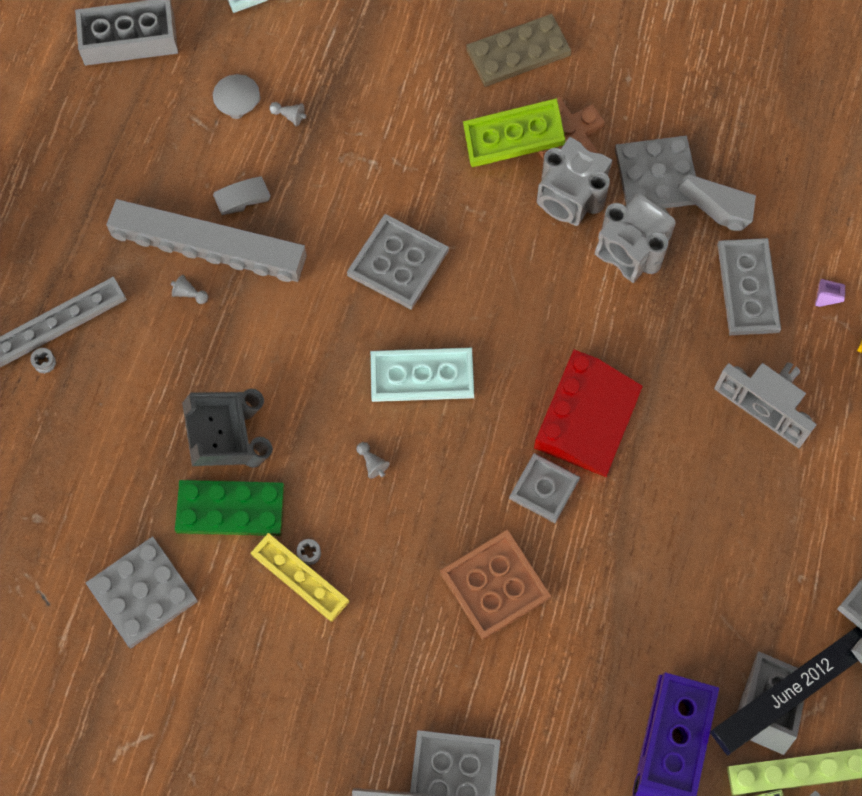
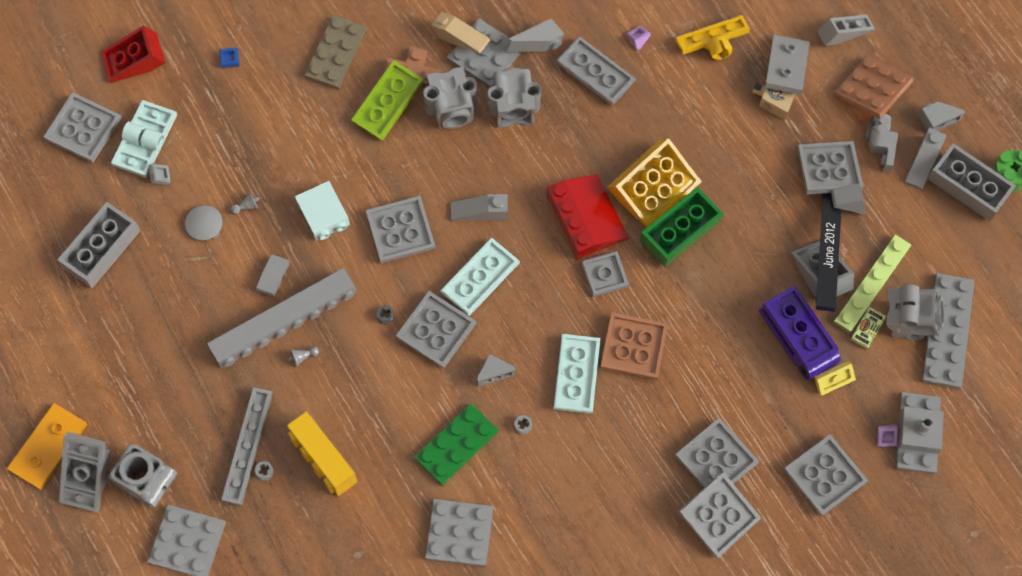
camera: 50 degrees left, 0 degrees up
(98, 393) = (320, 451): none -> yellow brick
(219, 430) = (410, 407): dark grey piece -> none
(245, 18) = (159, 174): none -> light grey tile
(299, 334) = (383, 320): none -> dark grey bush
(300, 577) = (533, 441): light yellow plate -> none
(327, 384) = (436, 329): none -> light grey plate
(335, 473) = (495, 370): none -> light grey slope
(345, 178) = (322, 211): none -> light aqua panel
(374, 464) = (506, 346): light grey piece -> none
(411, 555) = (576, 373): none -> light aqua plate
(493, 313) = (481, 208): none -> light grey slope
(648, 130) = (459, 33): none -> tan slope
(668, 515) = (681, 227): none -> green brick
(689, 448) = (654, 182): none -> yellow slope
(769, 399) = (669, 120): light grey brick -> none

